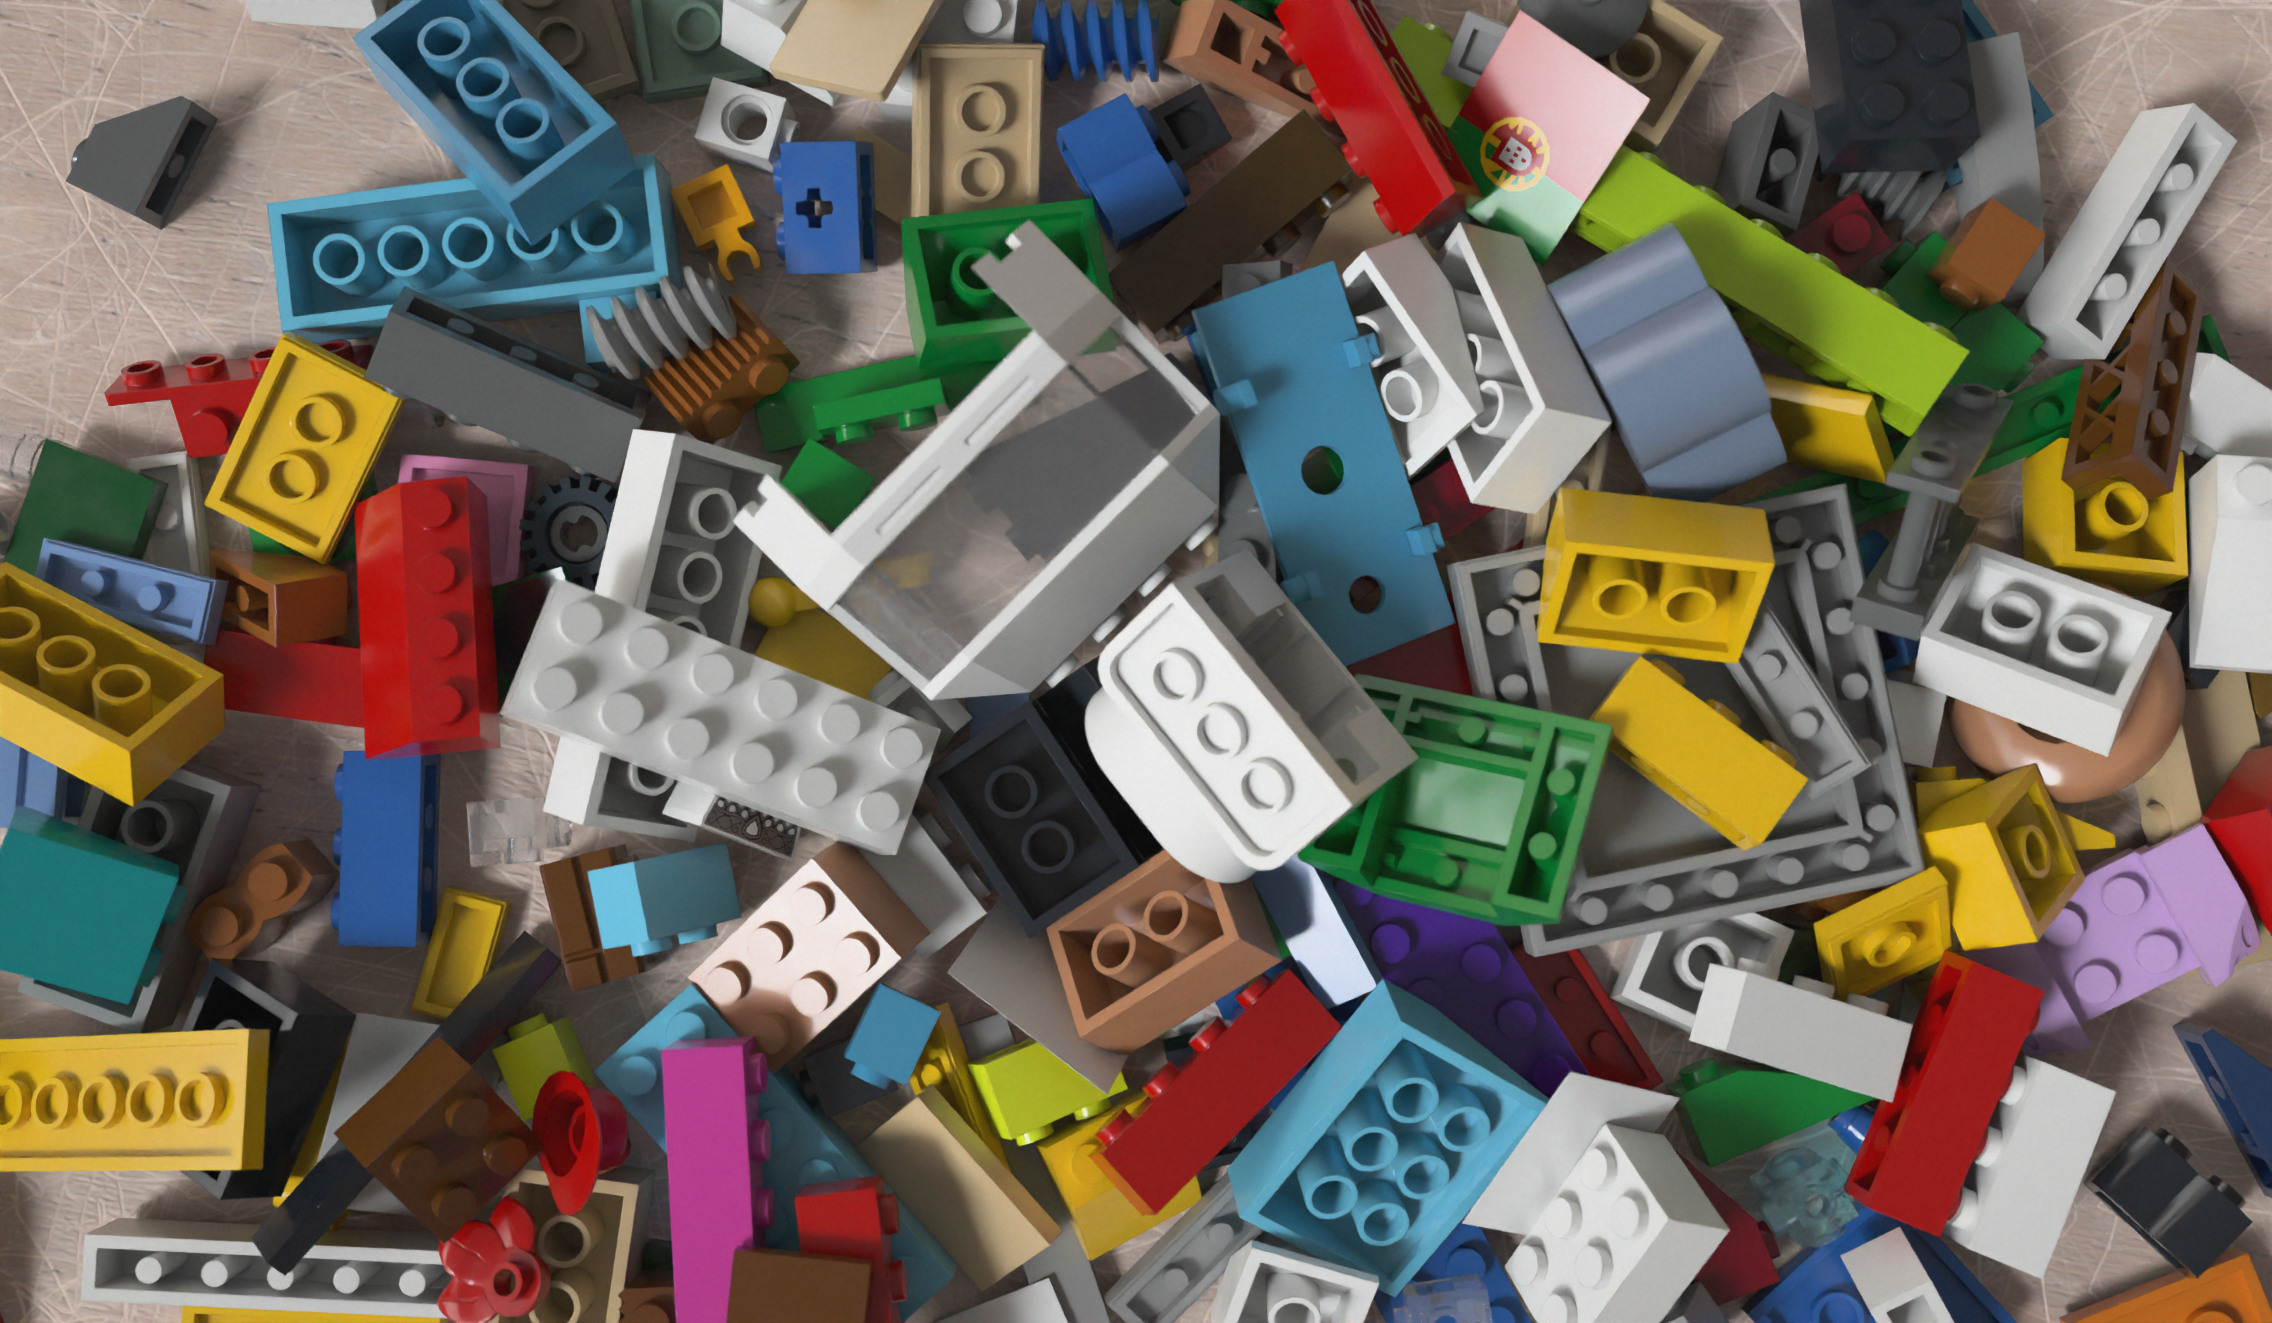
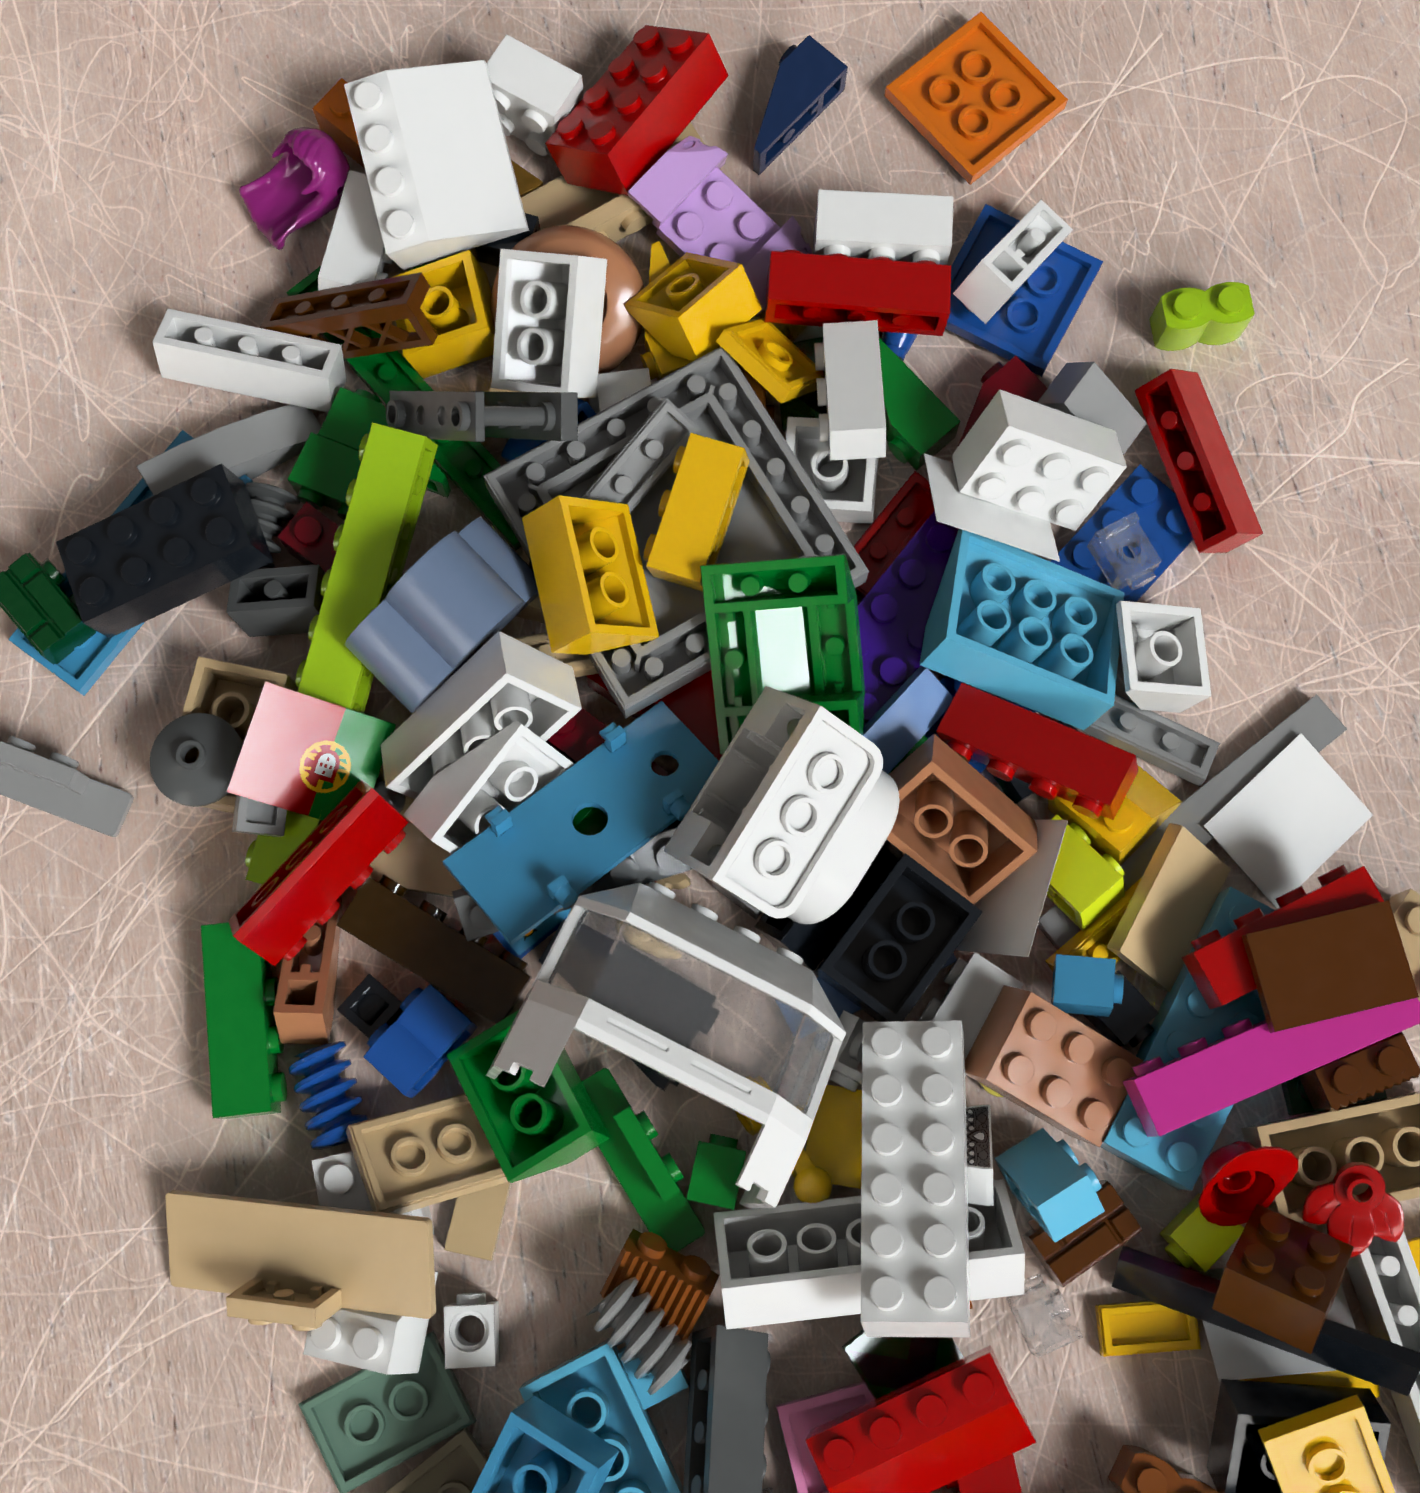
camera: 110 degrees left, 10 degrees down
(387, 850) = (1096, 1409): blue brick -> none
(549, 521) = (793, 1364): black bush -> none
(718, 217) = (543, 1332): light orange plate -> none
(832, 173) = (532, 1226): blue brick -> none
(1788, 1183) = (956, 359): clear light blue brick -> none
(1829, 428) = (446, 498): yellow tile -> none
(1984, 256) = (297, 439): dark orange brick -> none
(2168, 1201) = (872, 142): black brick -> none

